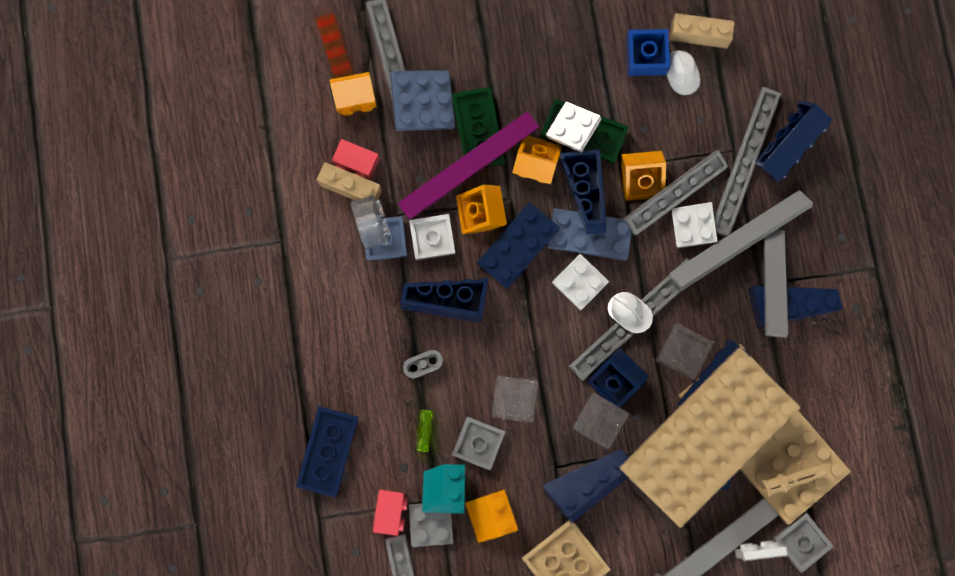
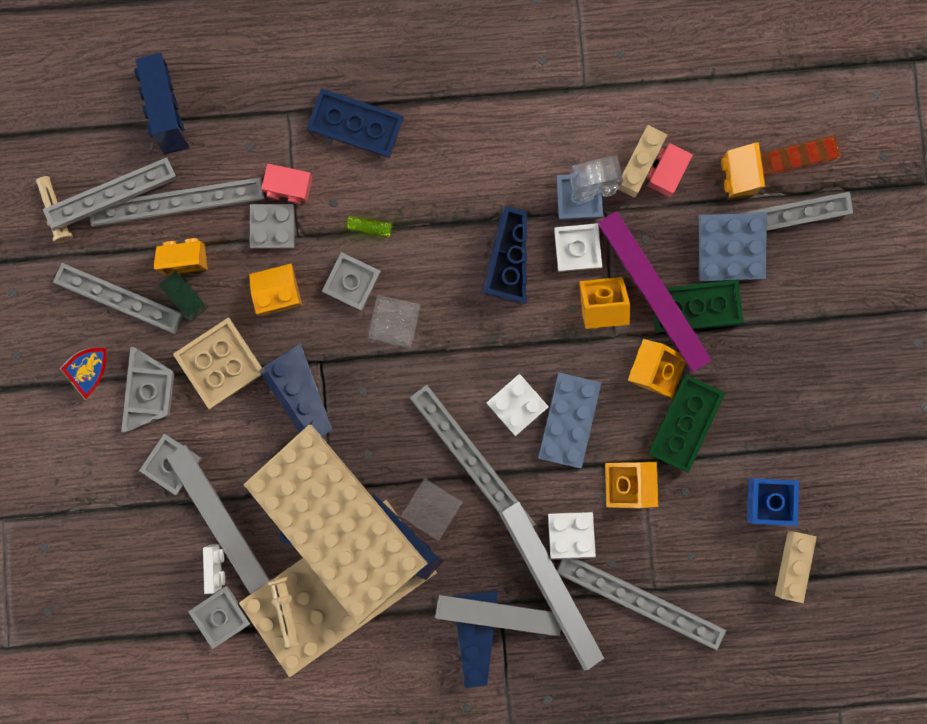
camera: 90 degrees right, 5 degrees up
(423, 364) = (440, 229): light grey plate -> none
(444, 489) = (305, 241): teal slope -> none
(518, 245) = (562, 339): dark blue plate -> none
(573, 127) = (690, 410): white plate -> none
(586, 185) = (622, 419): dark blue wedge -> none
(600, 421) = (363, 411): clear brick -> none
(618, 378) = (408, 436): dark blue slope -> none
(630, 312) = (479, 456): white piece -> none
(675, 192) = (609, 519): light grey tile -> none
(683, 73) = (748, 541): white piece -> none
(793, 140) = (659, 656): dark blue wedge -> none

